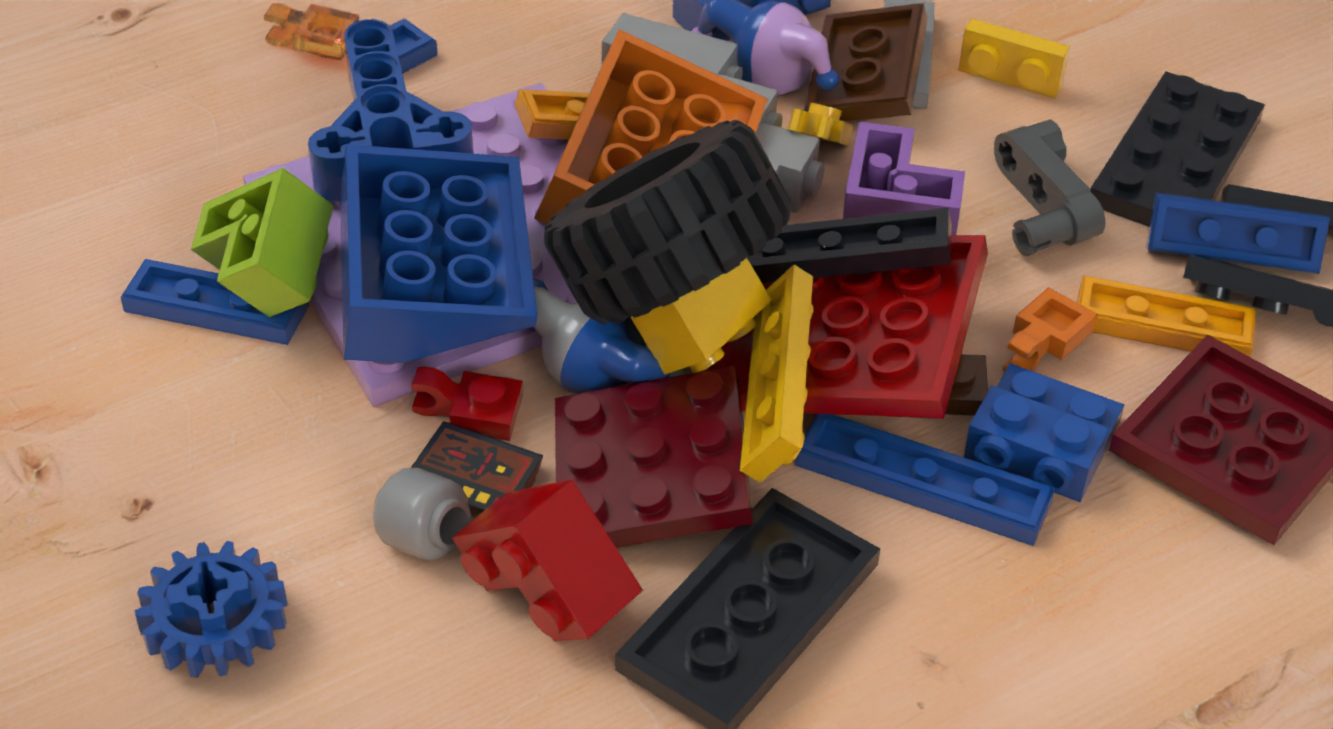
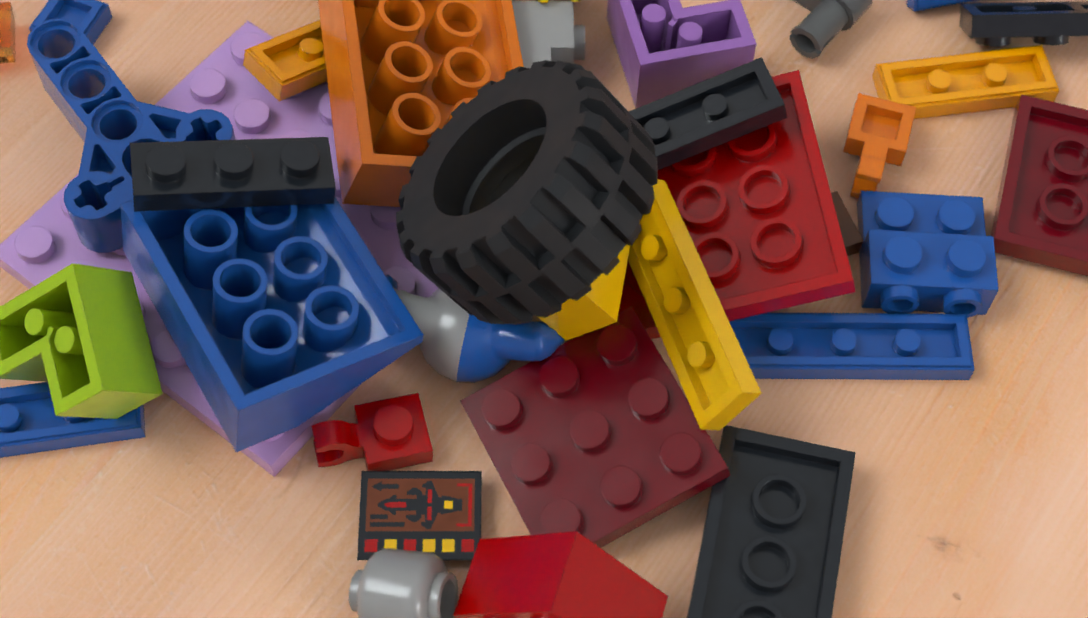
camera: 25 degrees left, 15 degrees up
(446, 153) = (231, 173): none -> black plate

